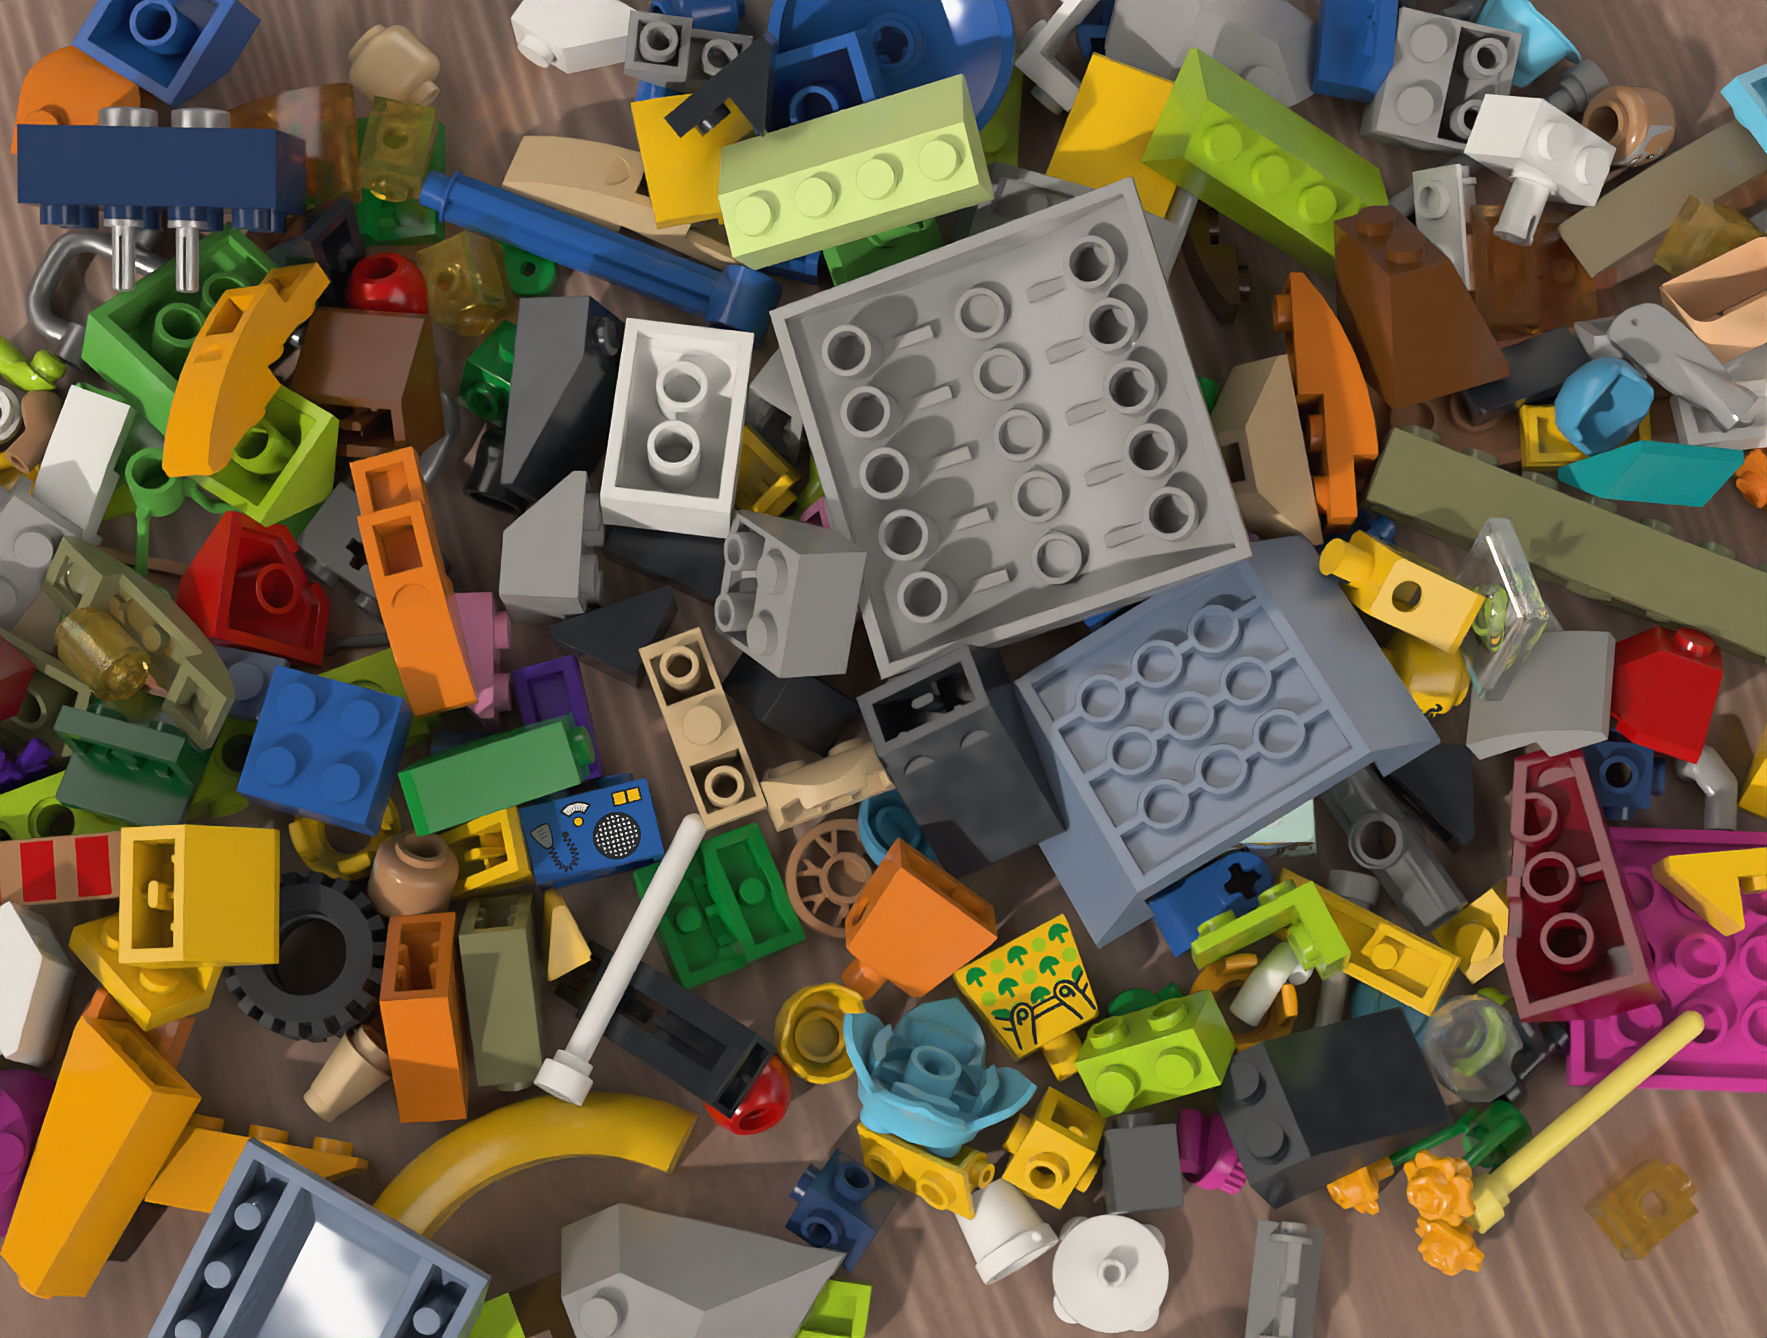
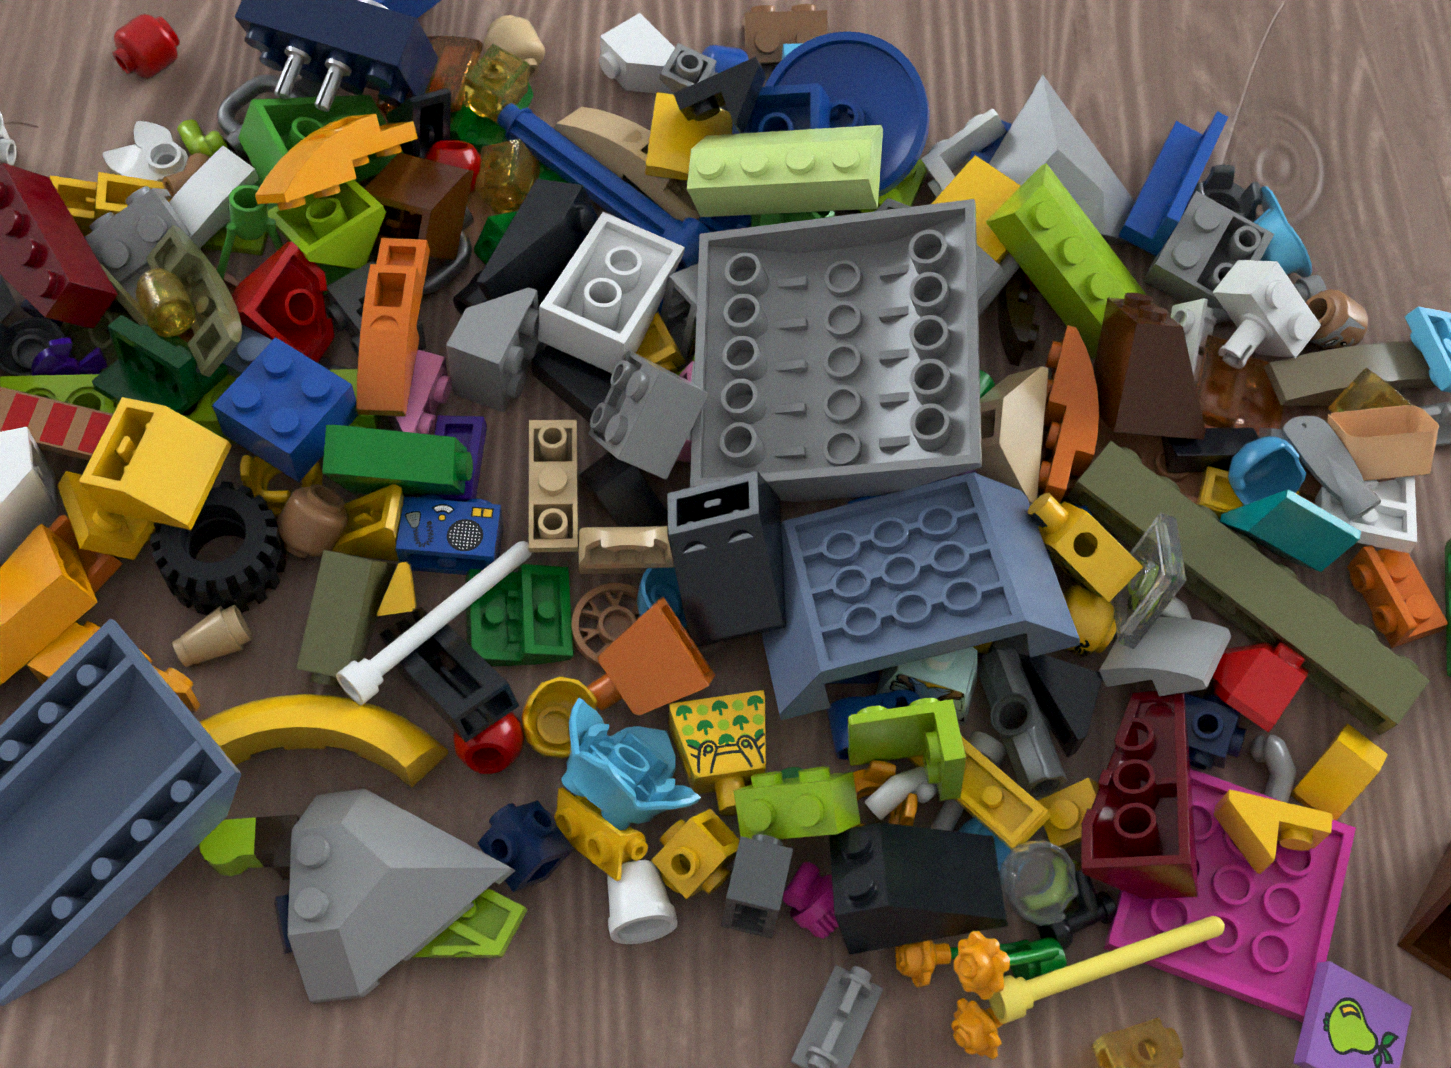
camera: 15 degrees right, 15 degrees down
(425, 1018) = (276, 612): orange slope -> none
(614, 634) = (509, 414): black slope -> none
(1109, 1273) = (708, 967): white piece -> none

